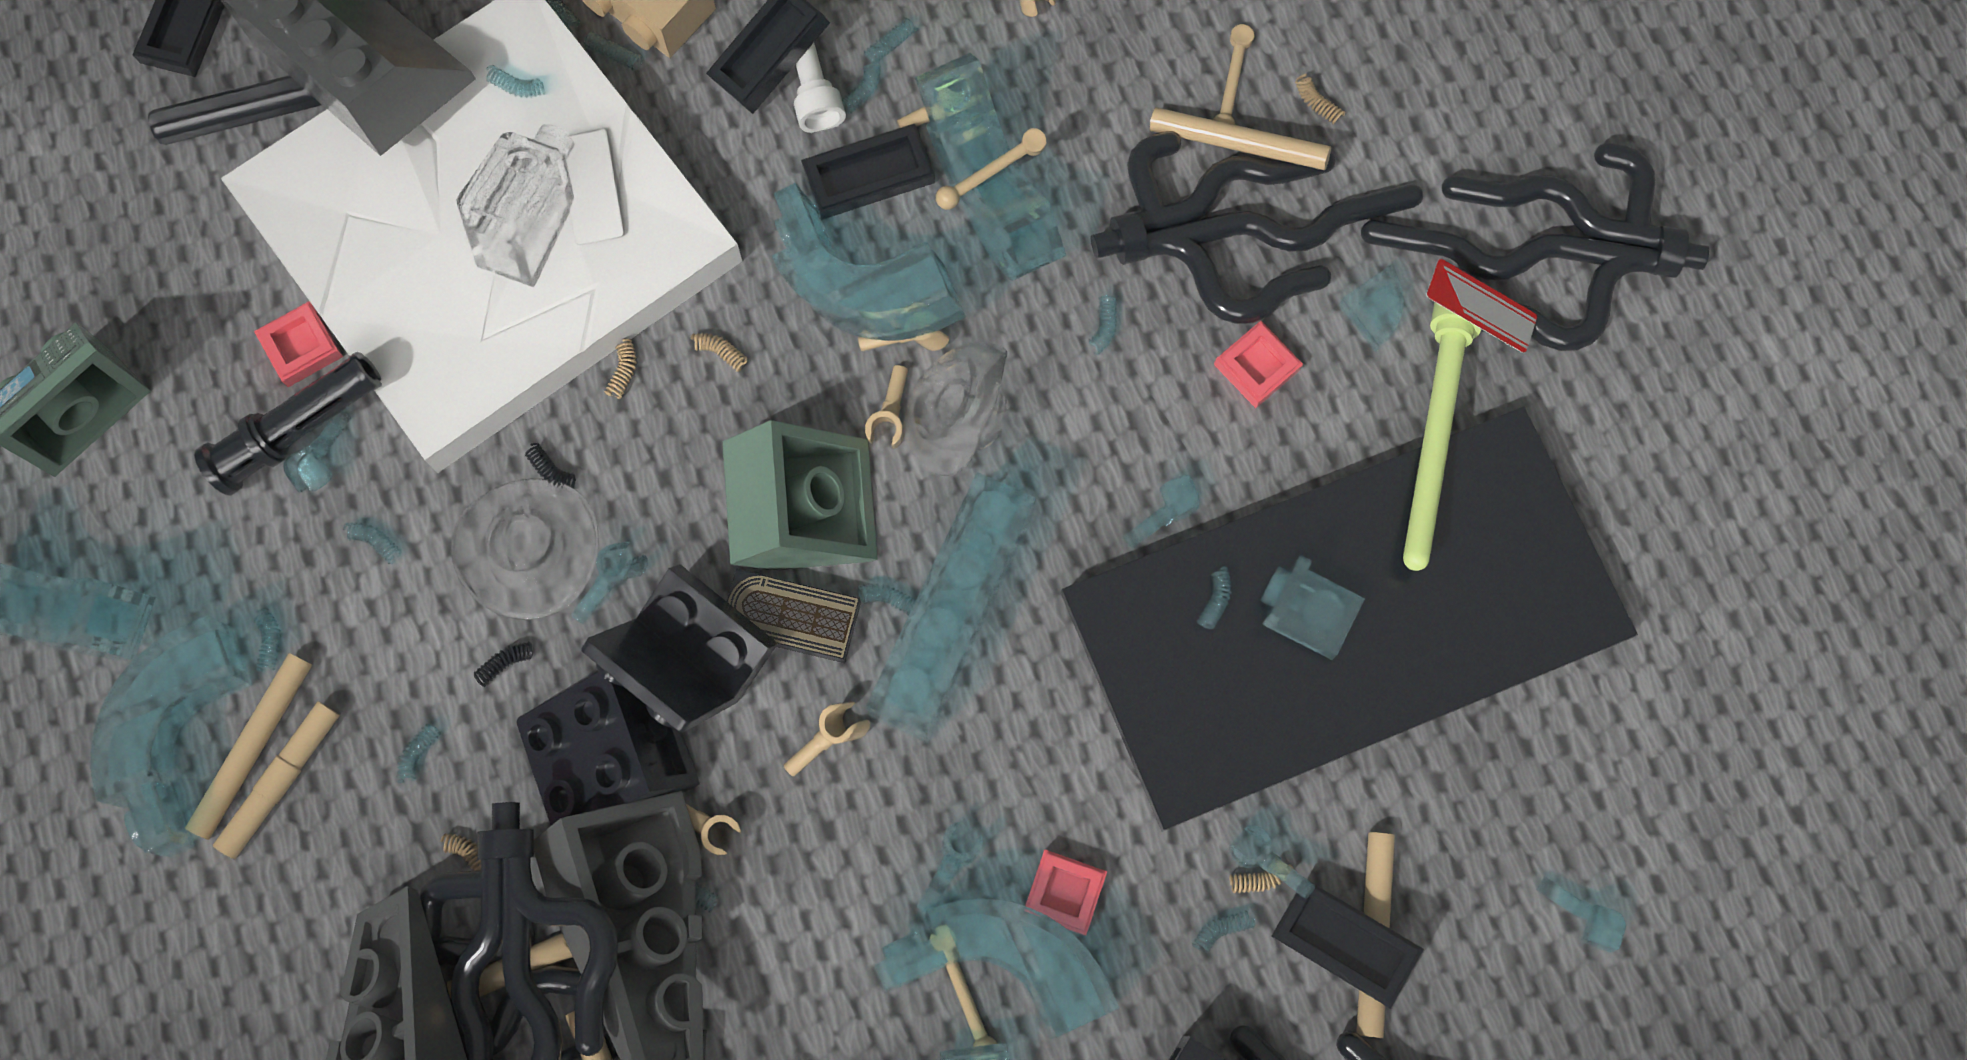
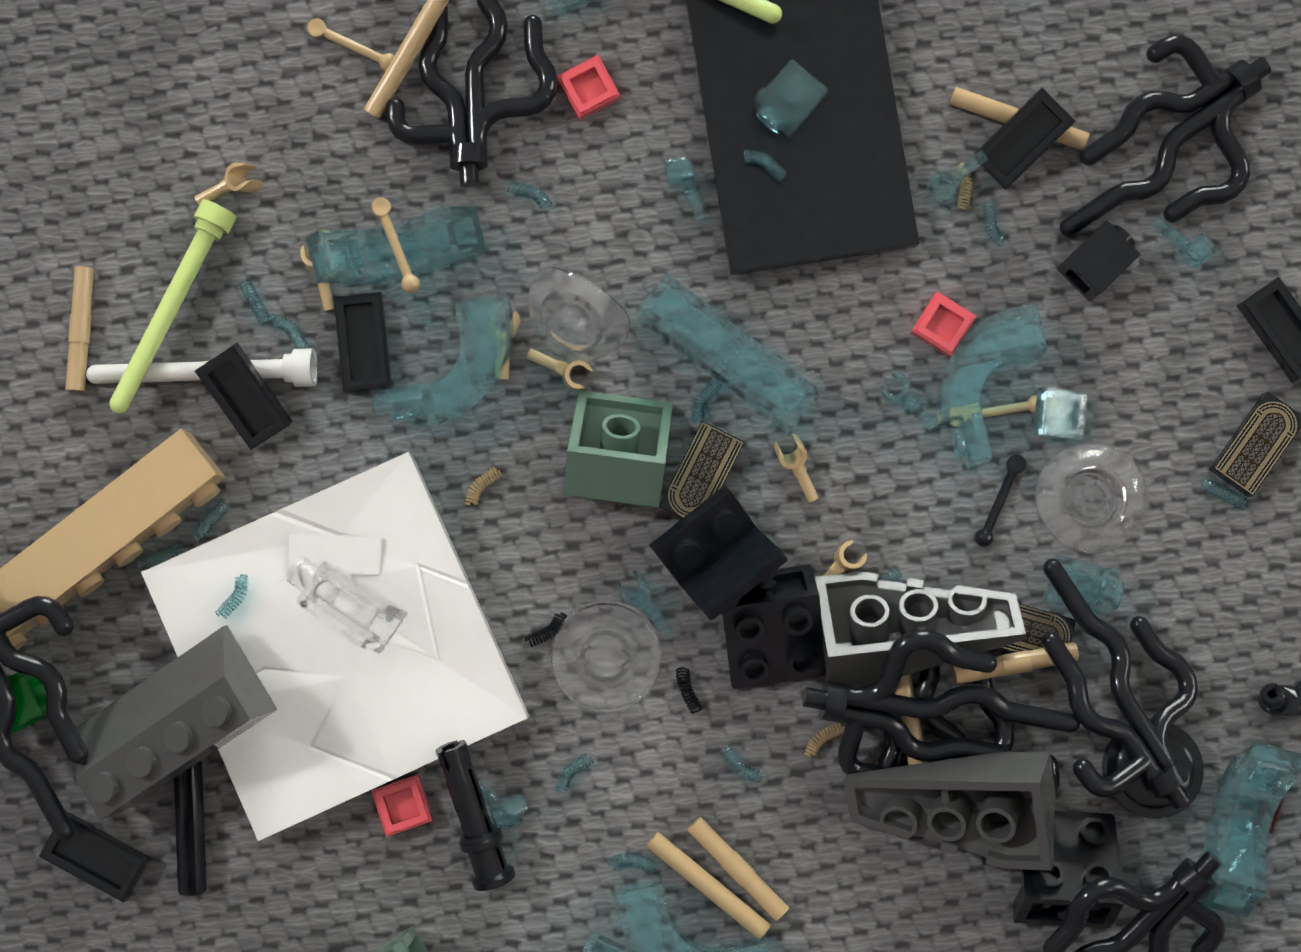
camera: 80 degrees left, 10 degrees up
(621, 350) = (464, 559): tan leg -> none
(894, 1037) = (1014, 465): none -> black hinge

